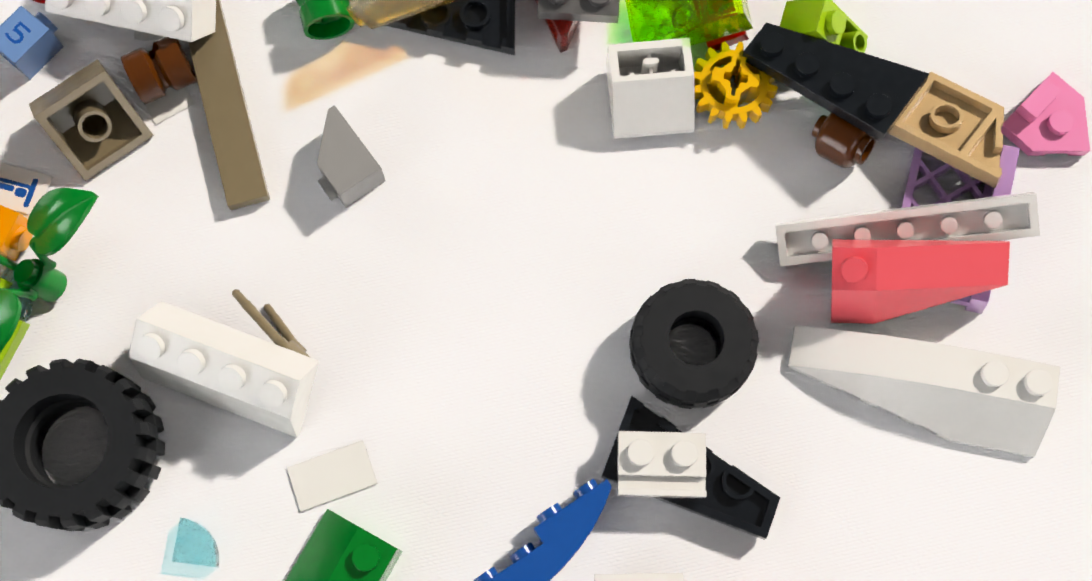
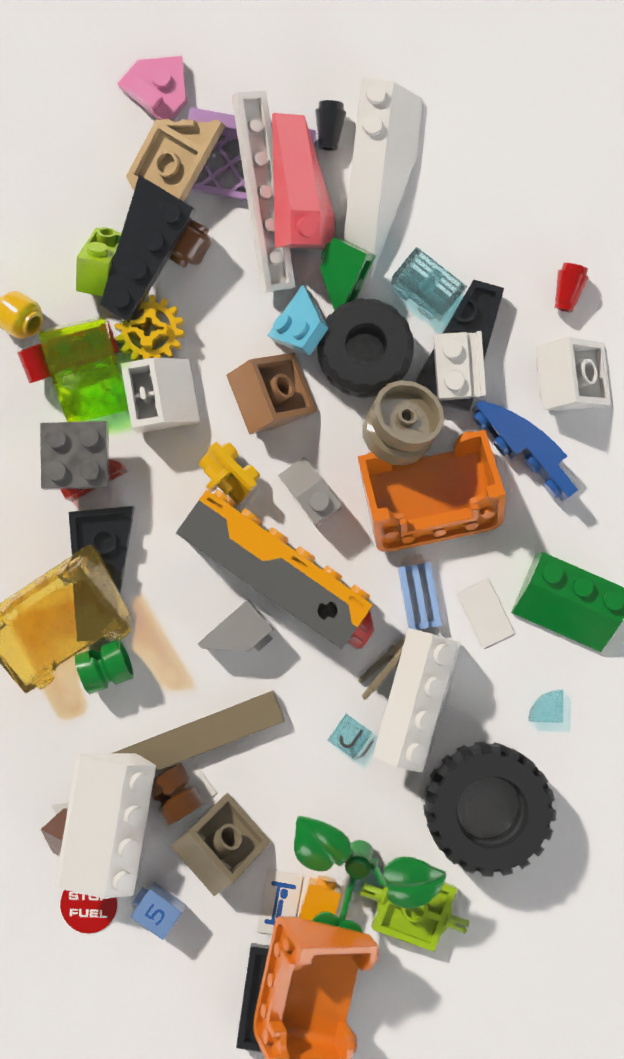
camera: 90 degrees left, 10 degrees up
(198, 285) = (349, 735): none -> clear light blue tile
(327, 391) = (419, 595): none -> light blue tile
(411, 207) = (278, 570): none -> piece
(493, 411) = (434, 497): none -> orange windscreen
(510, 261) = (310, 491): none -> light grey slope
(541, 157) = (226, 473): none -> yellow hips
(589, 379) = (402, 422): none -> dark tan wheel
(644, 224) = (271, 392): none -> medium nougat slope
(729, 264) = (300, 324): none -> medium azure wing
(775, 435) = (427, 285): none -> clear light blue brick
(798, 325) = (344, 270): none -> green slope
(1000, 328) = (330, 121): none -> black cone

